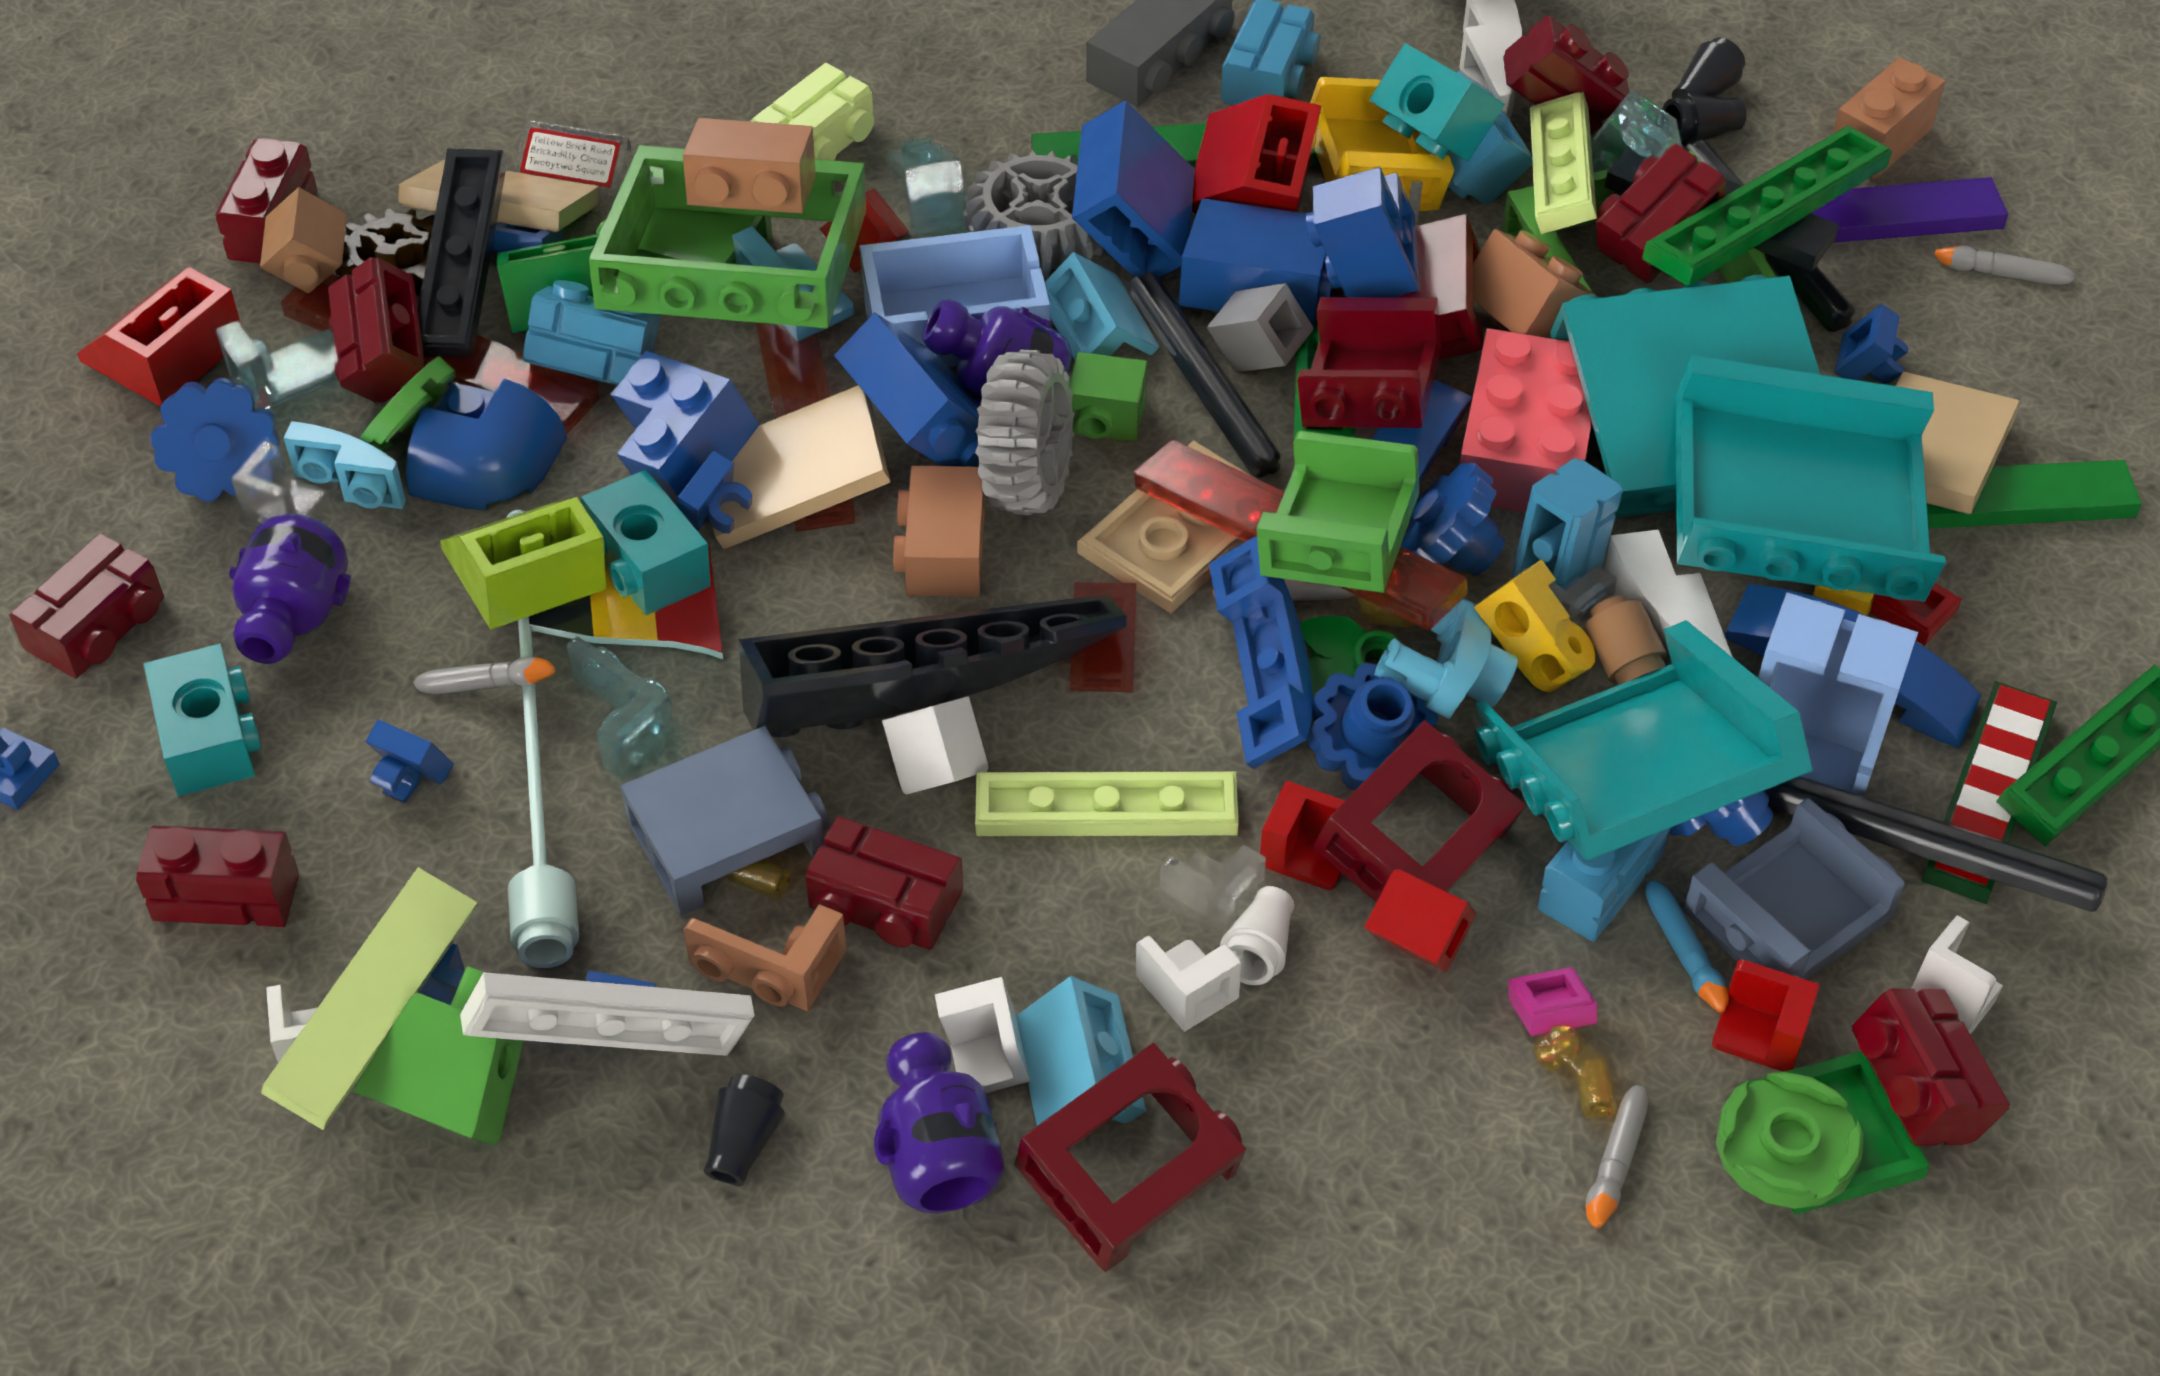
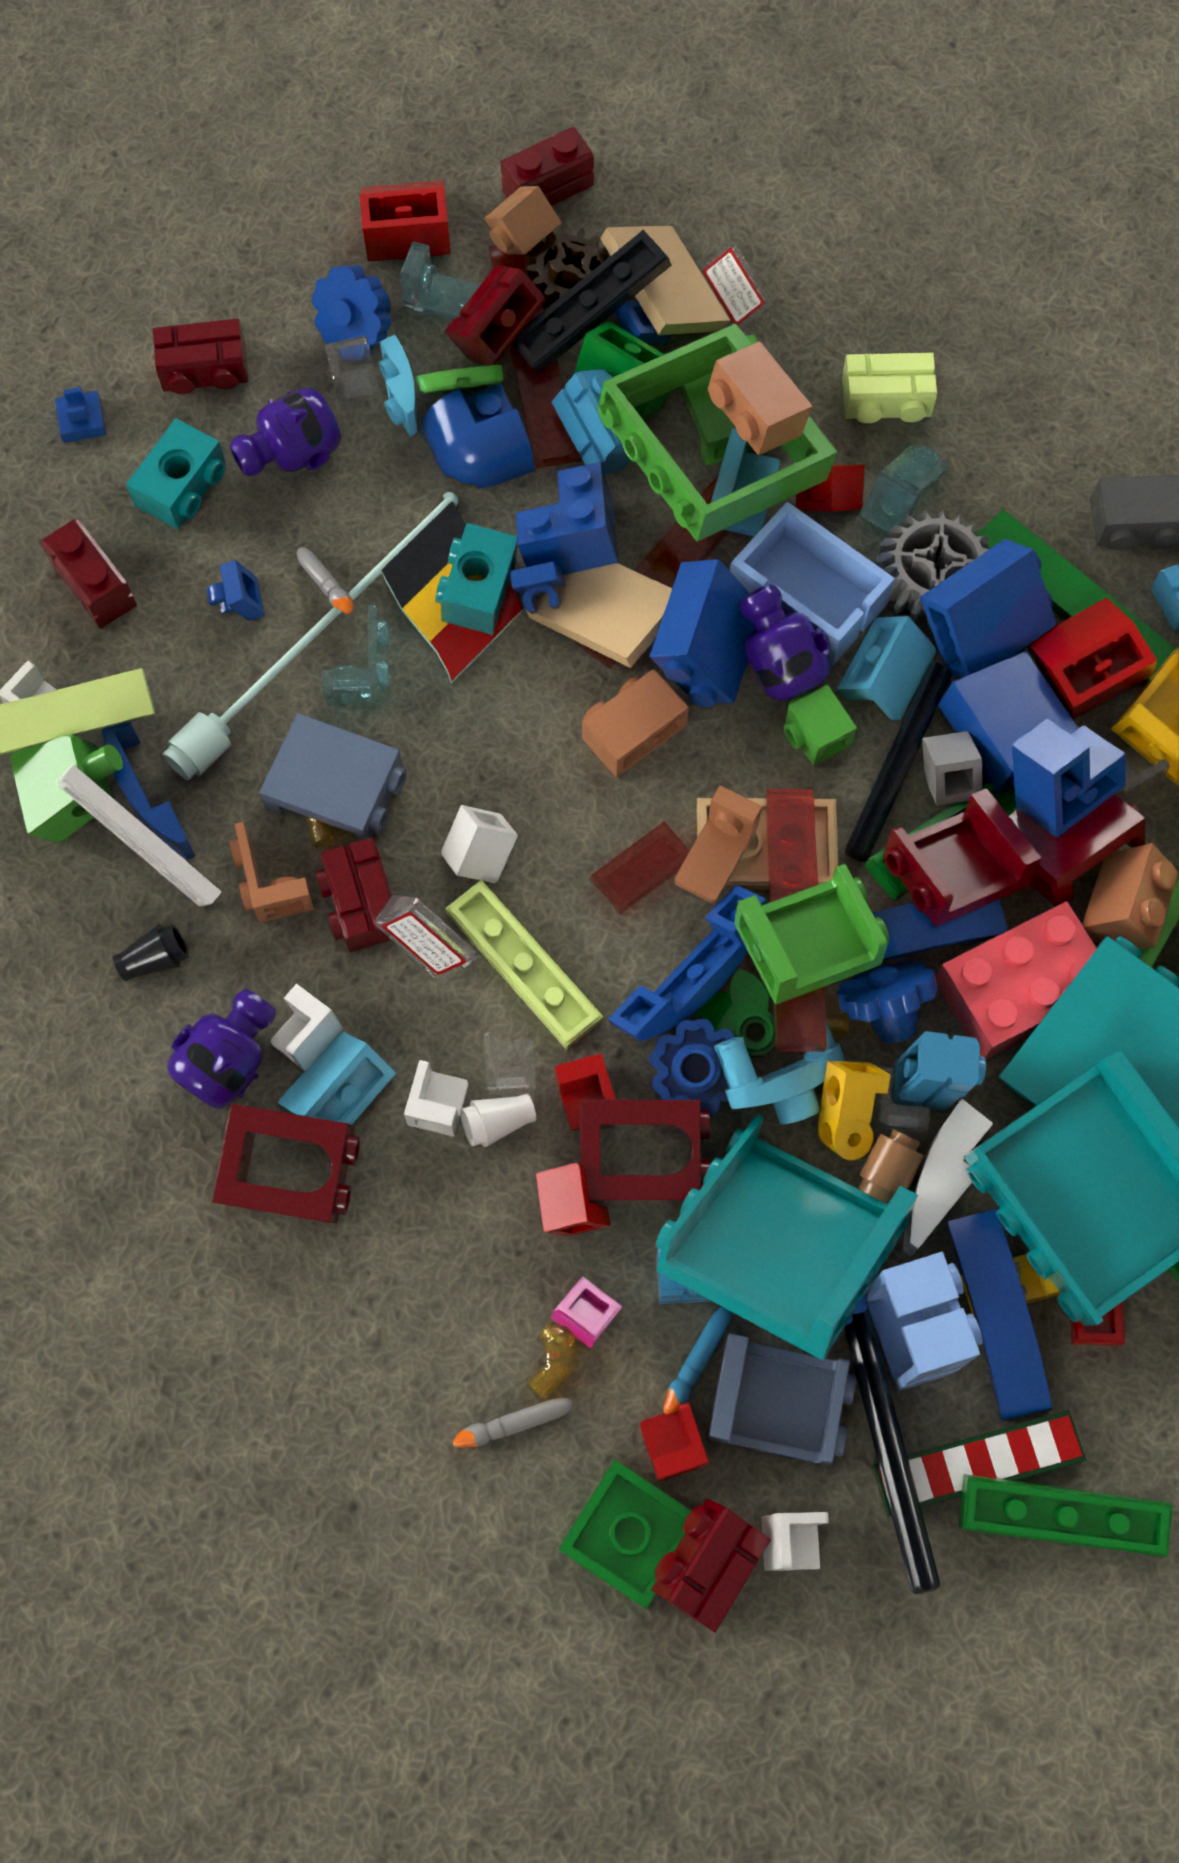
camera: 50 degrees right, 20 degrees up
(529, 561) = (406, 531): lime slope -> none
(910, 663) = (519, 786): black wedge -> none
(1001, 841) = (425, 936): none -> slope
(1025, 432) = (726, 709): light grey gear -> none
(1150, 539) = (719, 845): none -> nougat bracket
(1789, 1140) = (592, 1516): bright green tile -> none

